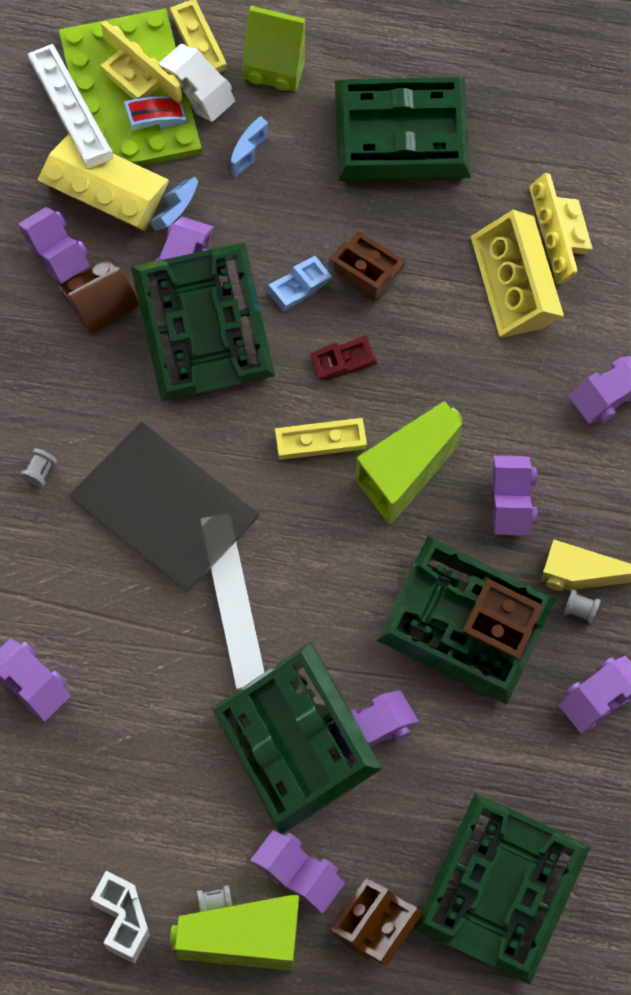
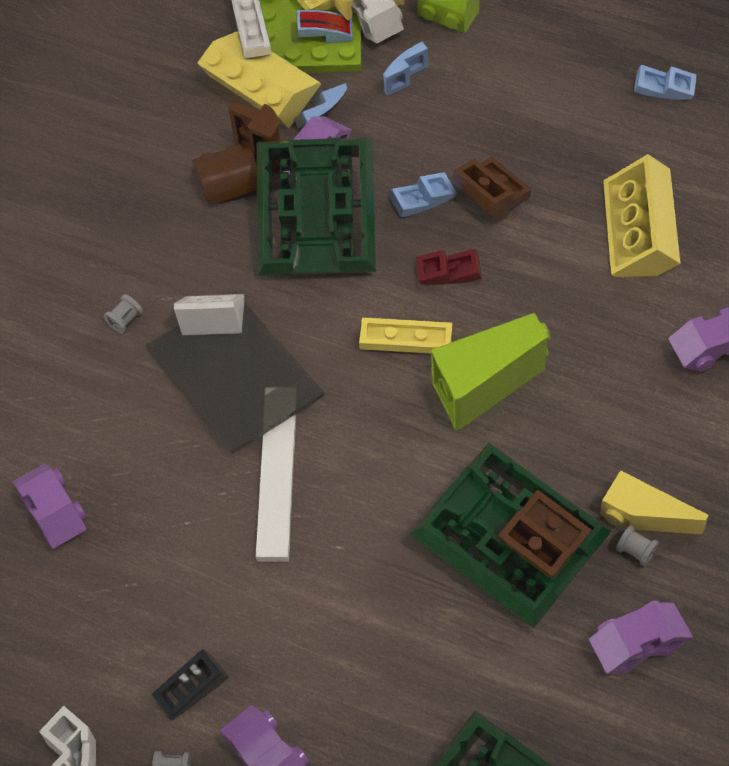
camera: 20 degrees right, 10 degrees down
(49, 240) = (196, 122): medium lavender brick -> none
(121, 247) = (254, 126): none -> reddish brown brick
(126, 451) = (210, 314): none -> white slope
(207, 805) = (192, 667): none -> black slope
(294, 739) = (294, 615): dark green piece -> none
(383, 720) = (367, 623): medium lavender brick -> none
(401, 123) = (556, 75): dark green piece -> none
(511, 491) = (587, 422): medium lavender brick -> none
(513, 119) = (672, 85): none -> light blue slope
(561, 228) = (696, 185): light yellow bracket -> none

